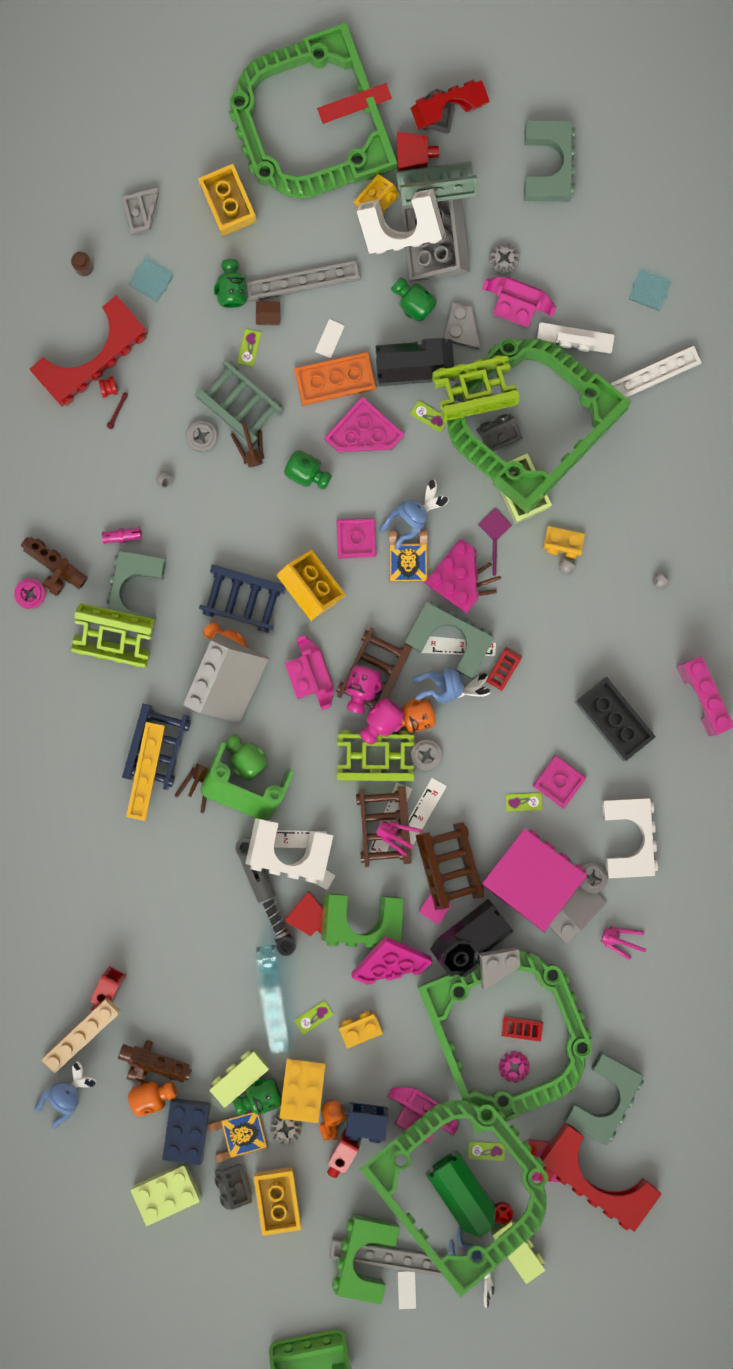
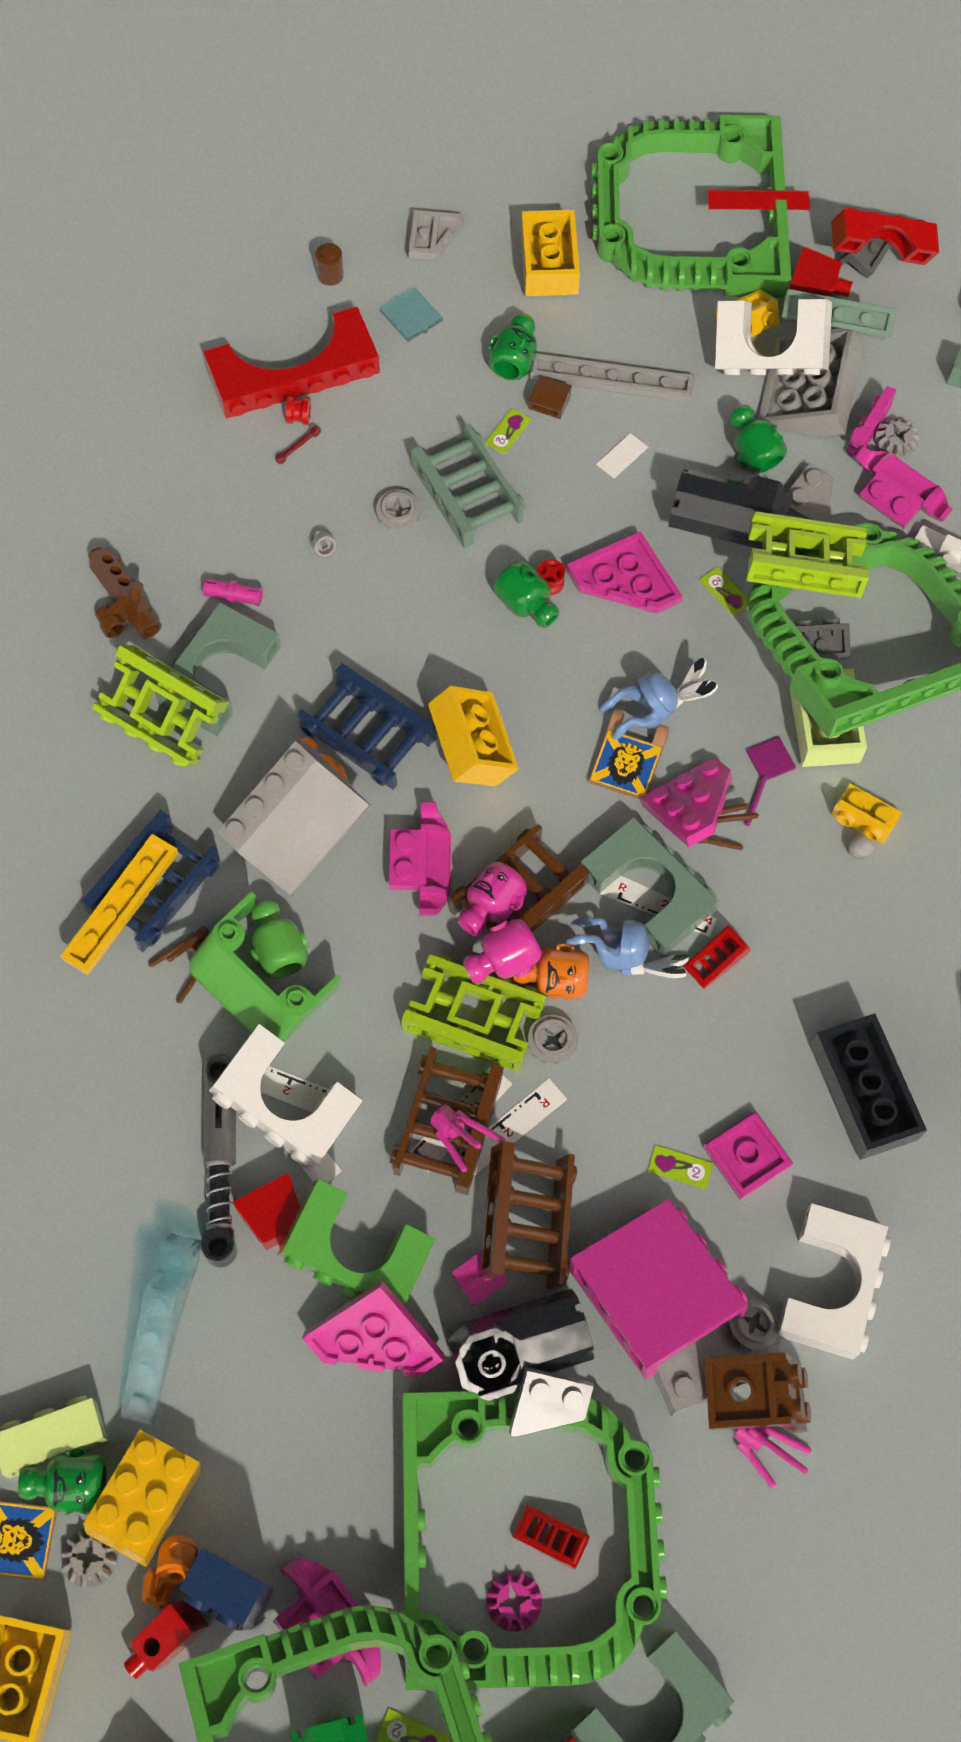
camera: 20 degrees right, 20 degrees down
(21, 596) = (76, 611): dark pink gear -> none
(253, 457) = (458, 558): reddish brown plant -> none
(314, 1017) = (214, 1386): lime sticker -> none
(317, 446) = (555, 570): none -> red wheel
(335, 378) = (610, 502): orange tile -> none
(356, 538) = (562, 708): dark pink tile -> none
(360, 1029) = (281, 1432): yellow bracket -> none
(483, 256) = (869, 423): none -> dark pink hinge
(617, 916) = (775, 1395): none -> reddish brown bracket

